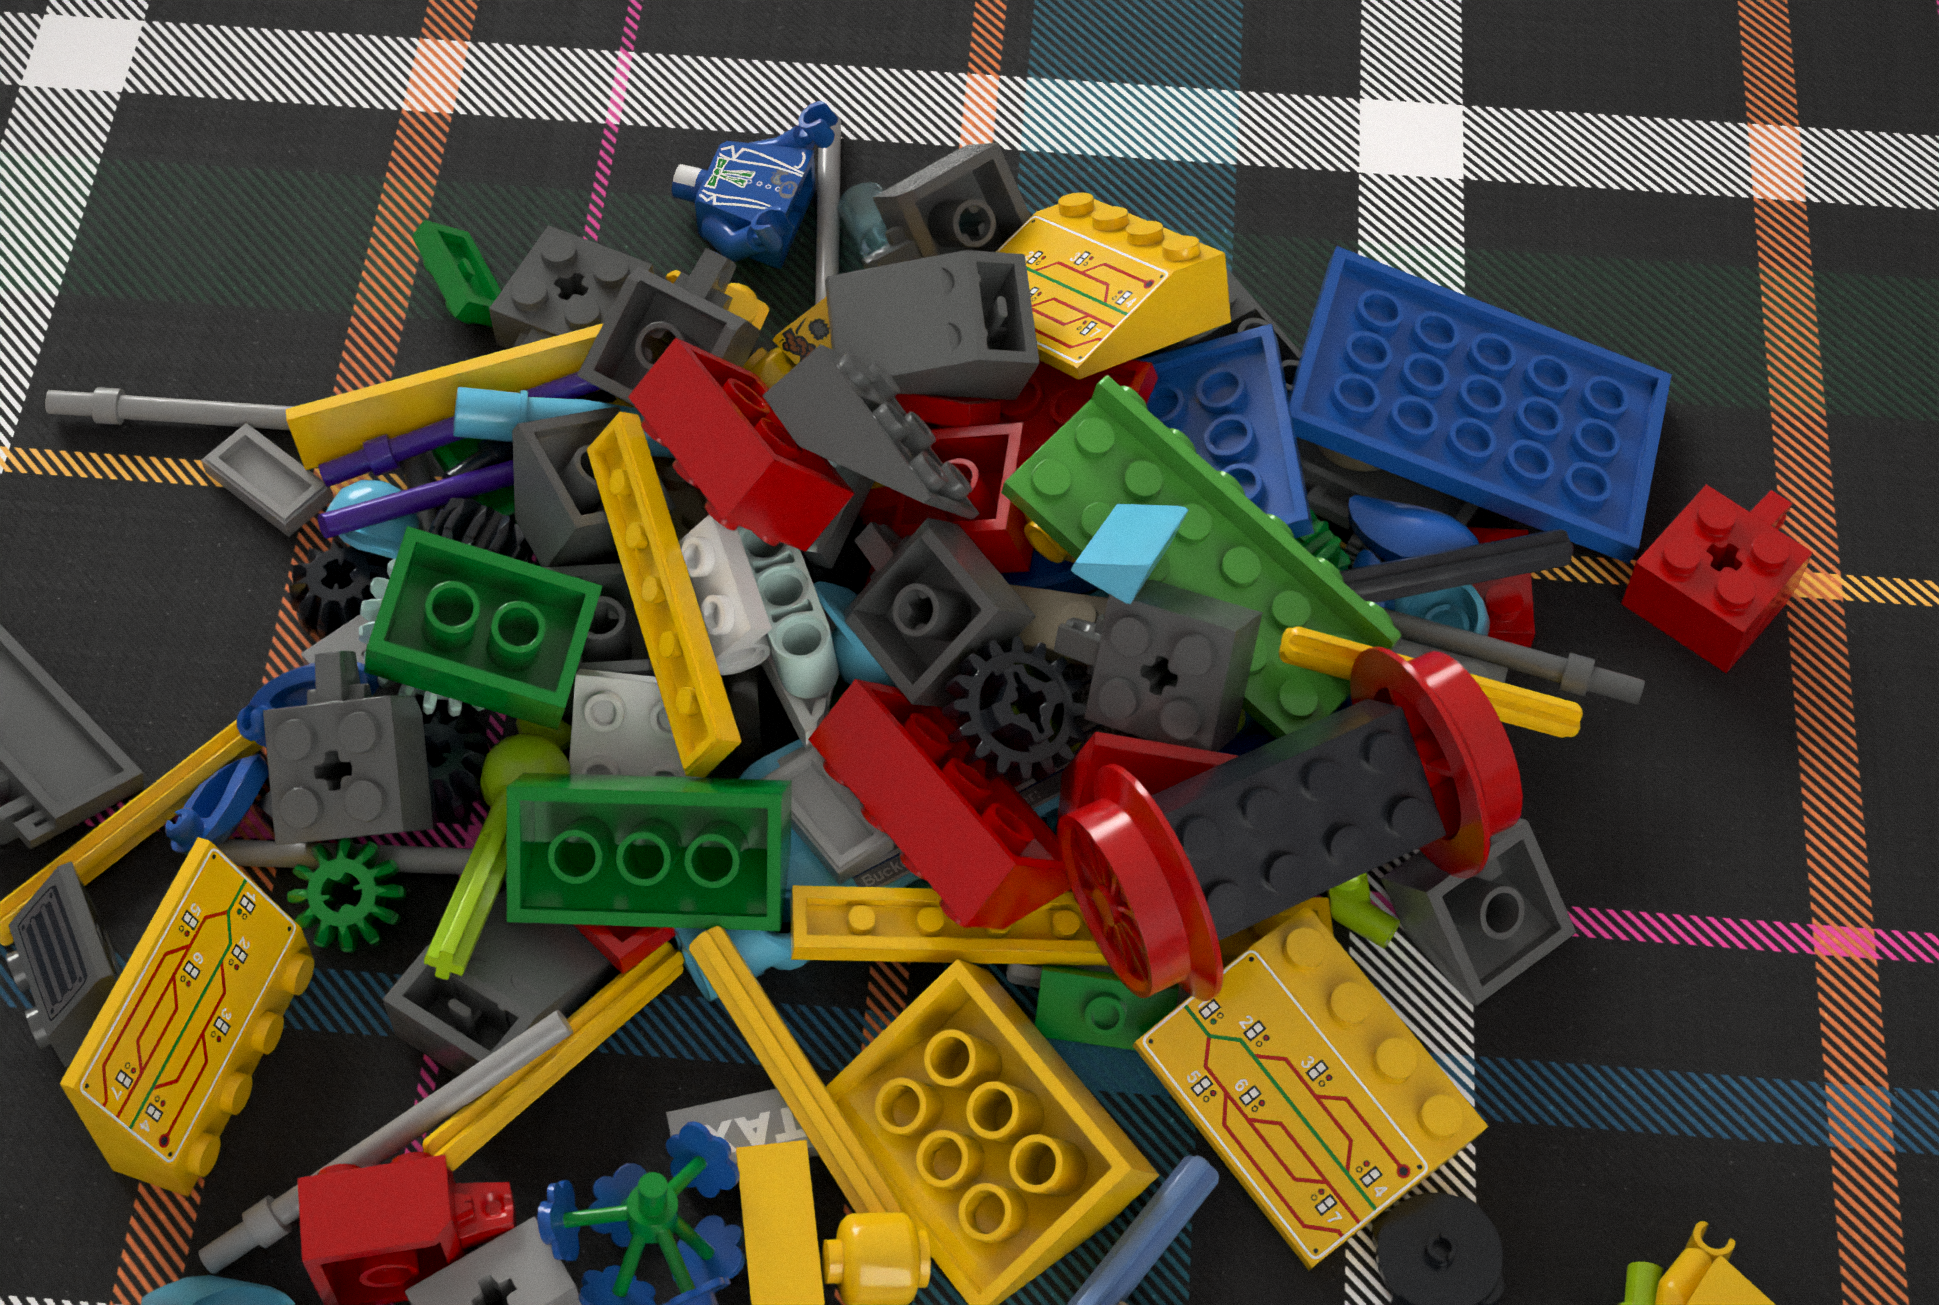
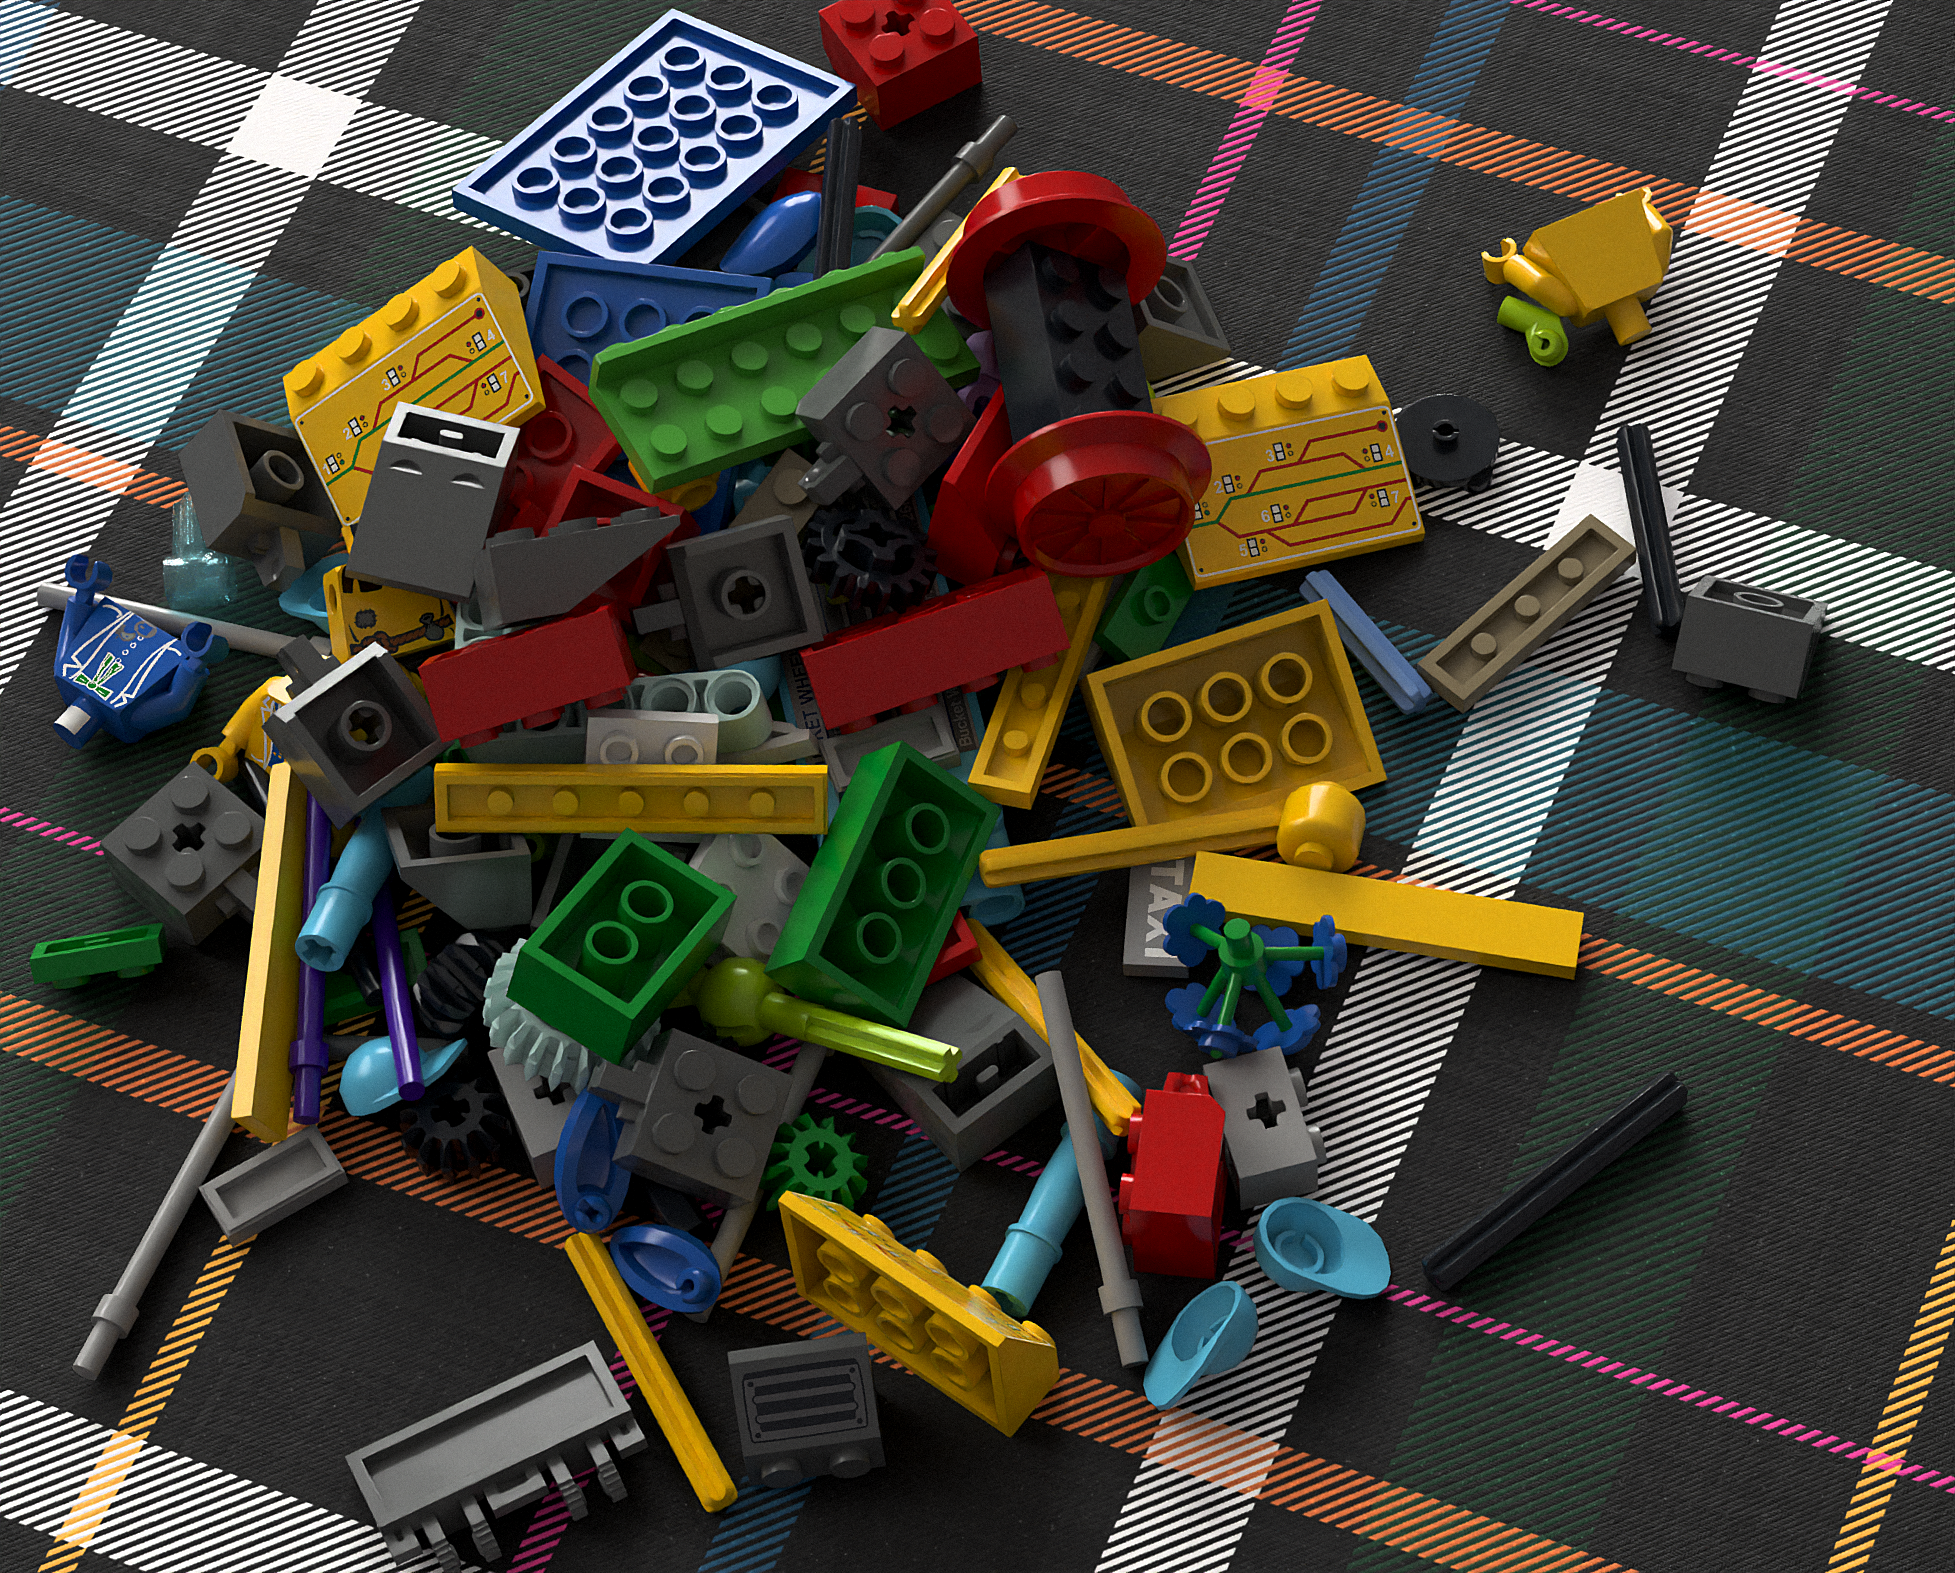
camera: 65 degrees left, 0 degrees up
(320, 1123) = (1052, 1208): none -> medium azure piece
(1129, 547) = (783, 387): medium azure slope -> none

